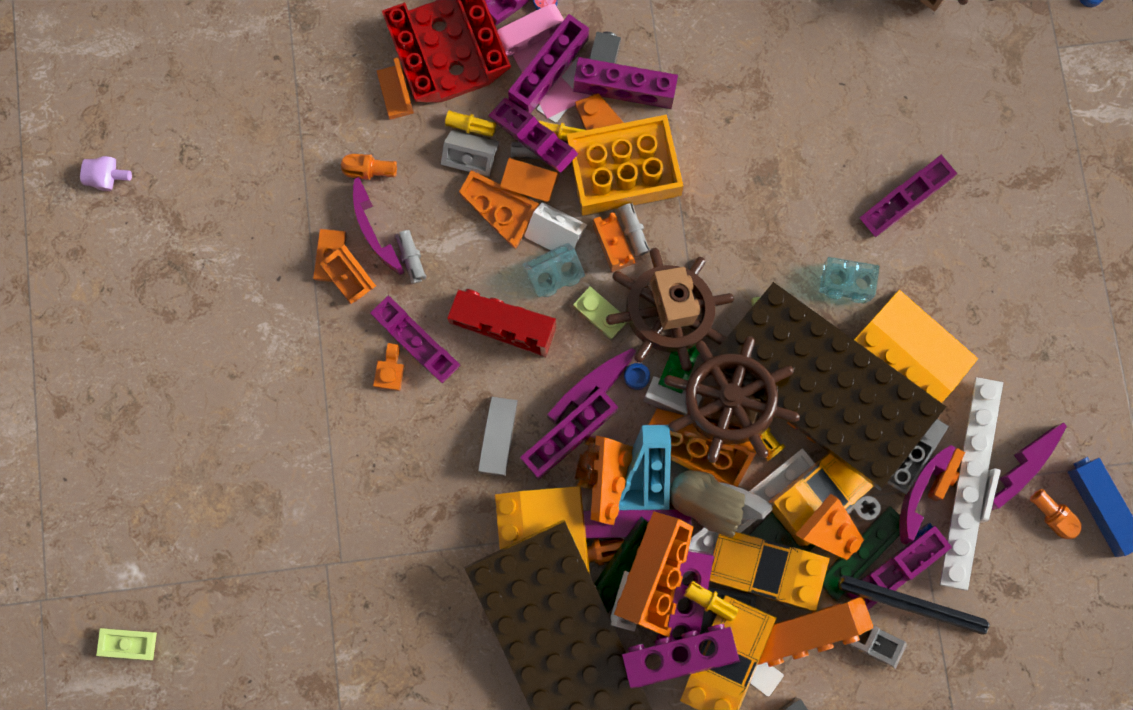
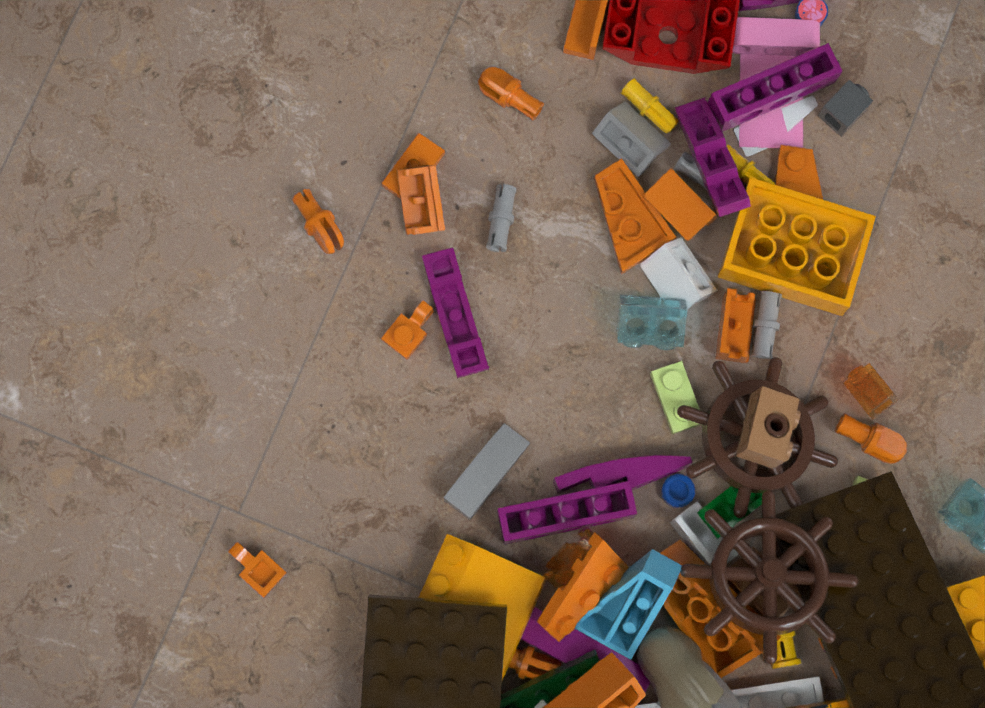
camera: 25 degrees right, 0 degrees up
(285, 329) = (319, 222): none -> orange arm
(361, 203) = (479, 129): magenta slope -> none
(378, 595) = (259, 571): none -> orange plate
(503, 322) = (562, 347): red wedge -> none
(625, 83) = (849, 154): magenta brick -> none
(728, 235) = (870, 390): none -> clear orange brick
(750, 267) = (874, 439): none -> orange arm

